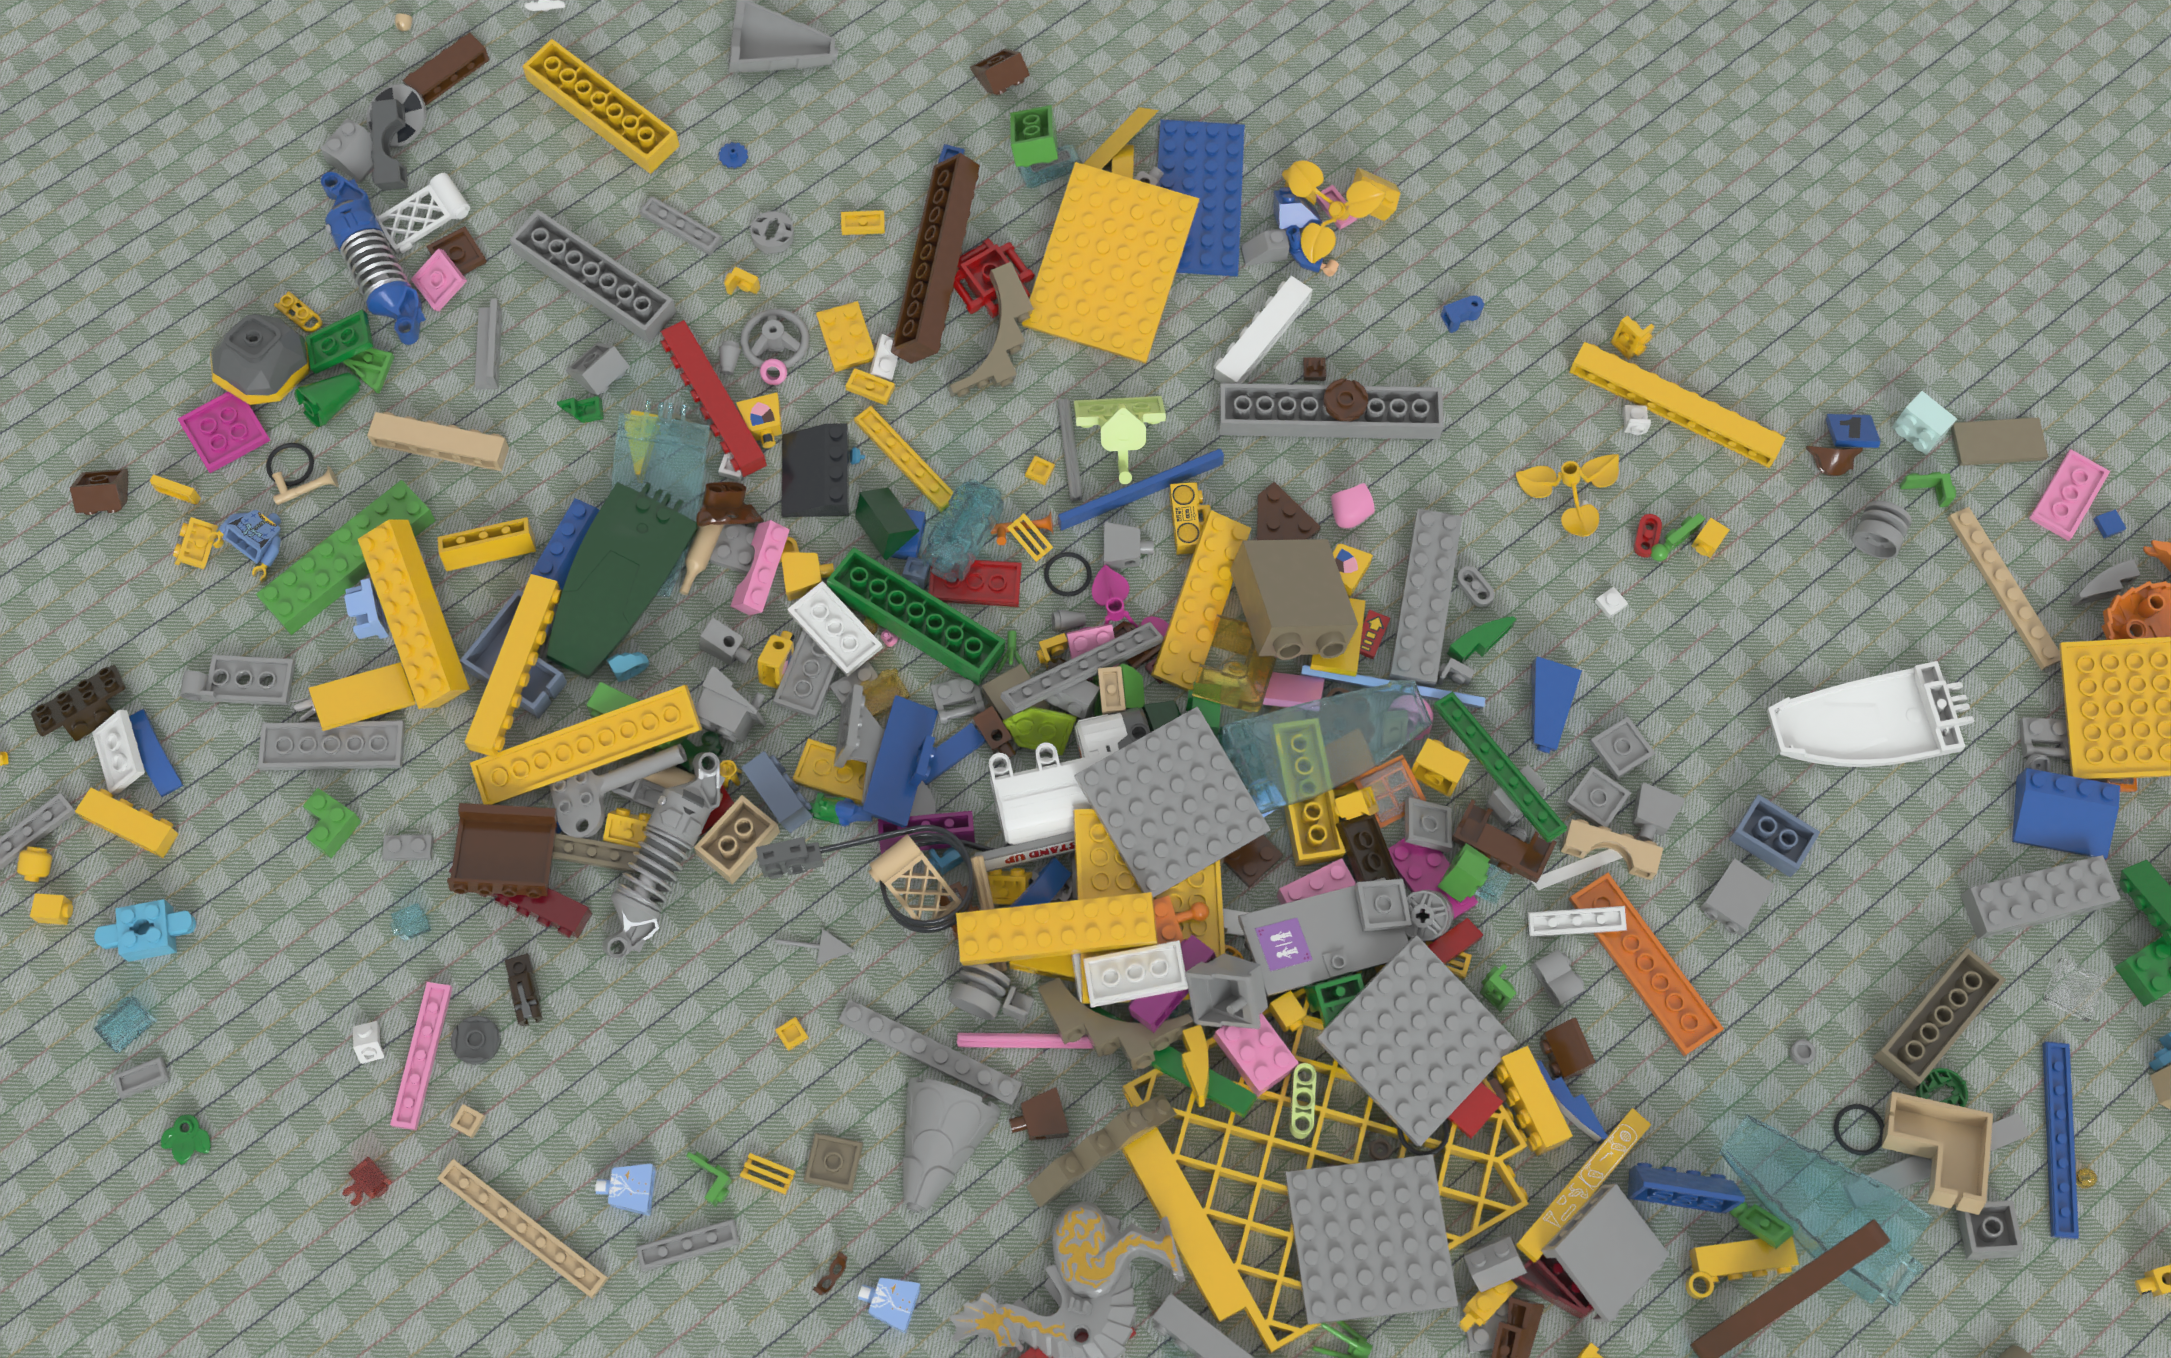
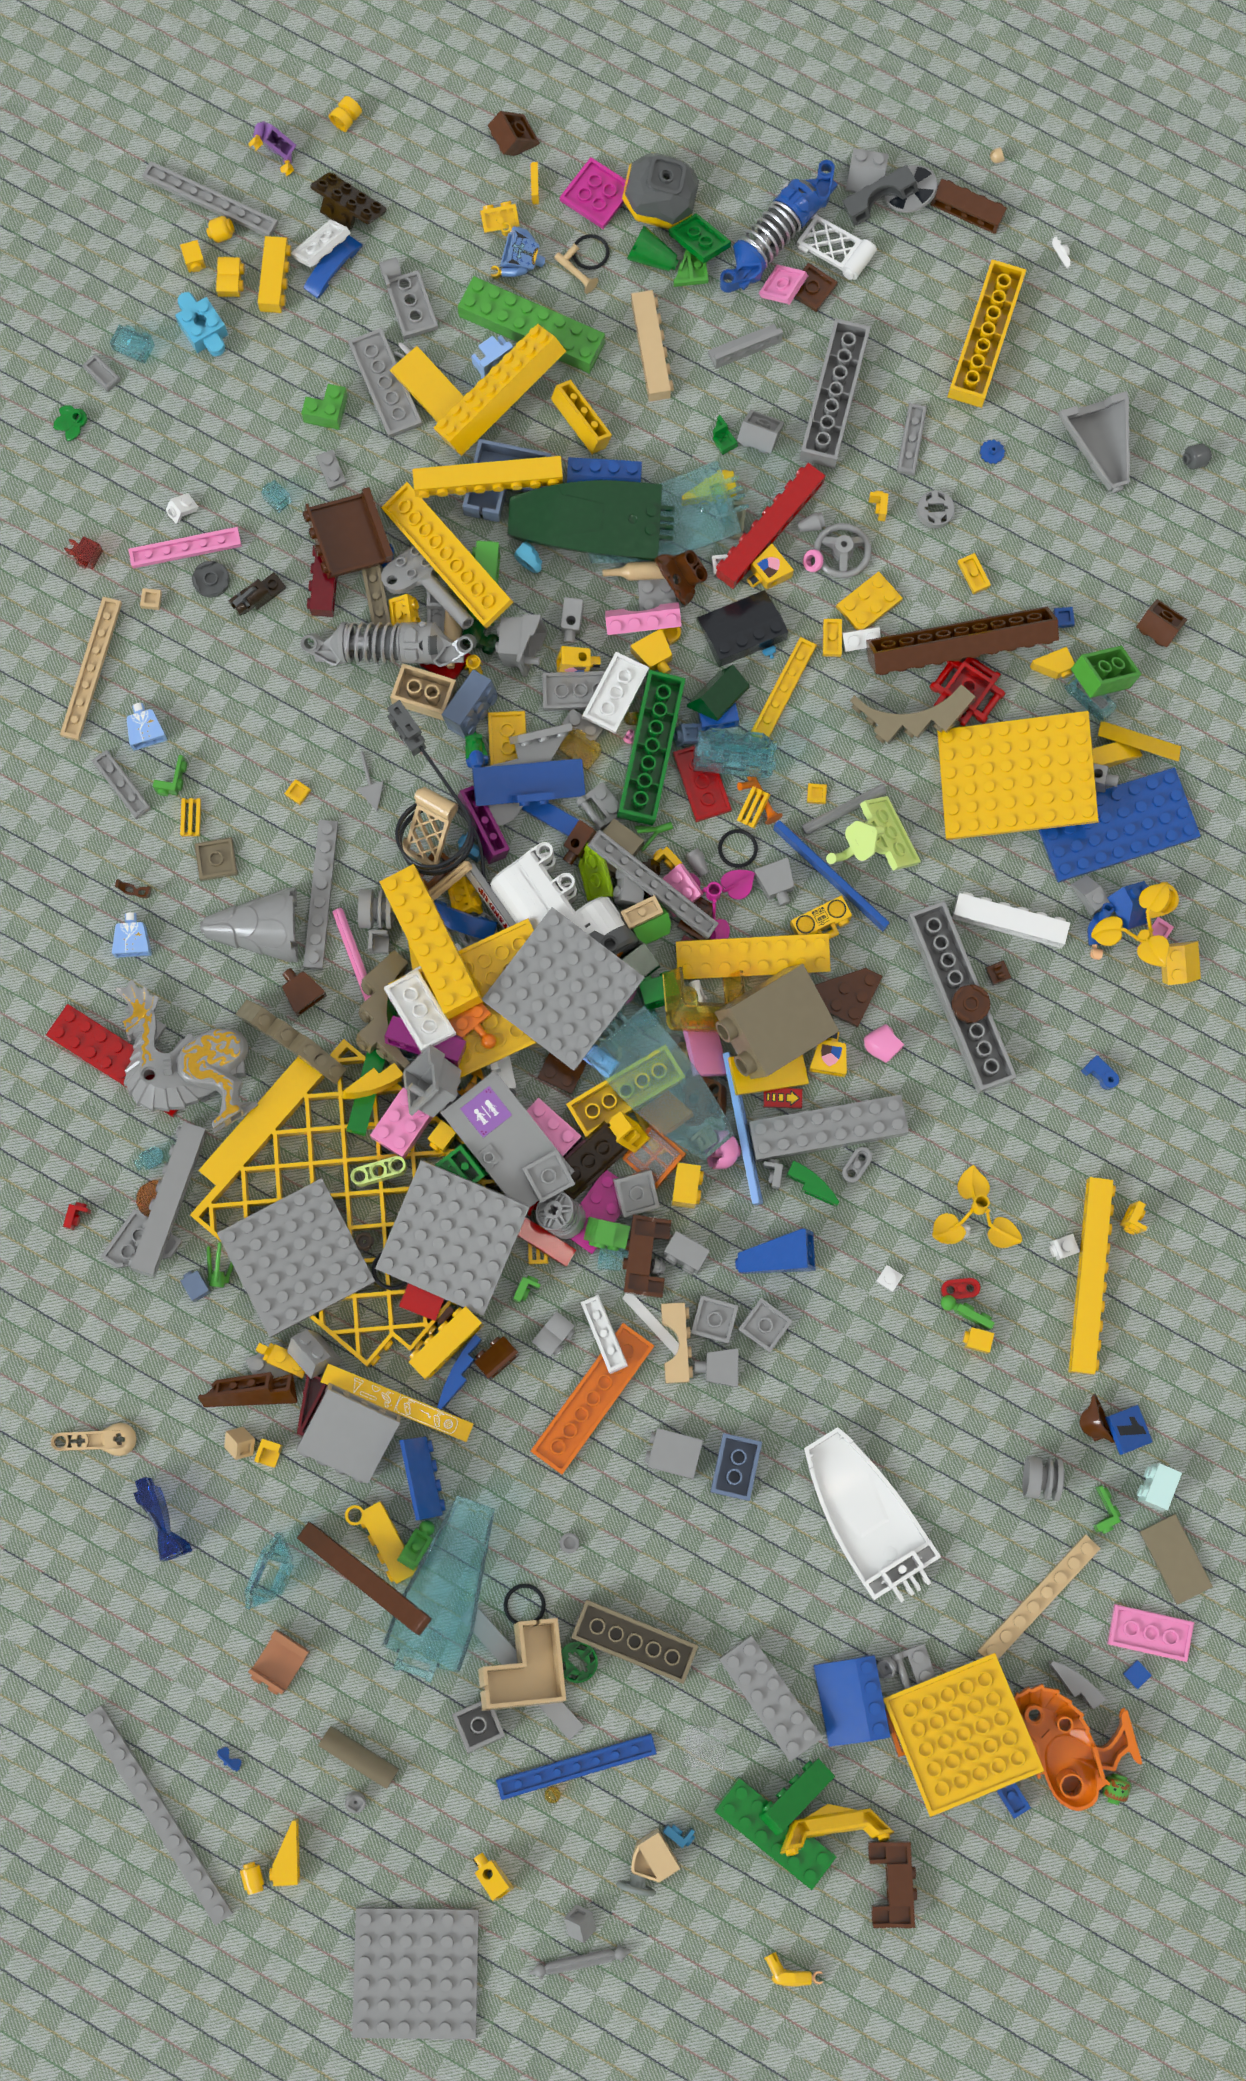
camera: 70 degrees right, 10 degrees up
(102, 876) = (229, 277): none -> yellow brick
(302, 314) = (713, 202): yellow piece -> none
(1000, 184) = (1054, 664): none -> yellow slope
(1500, 767) = (698, 1229): green tile -> none

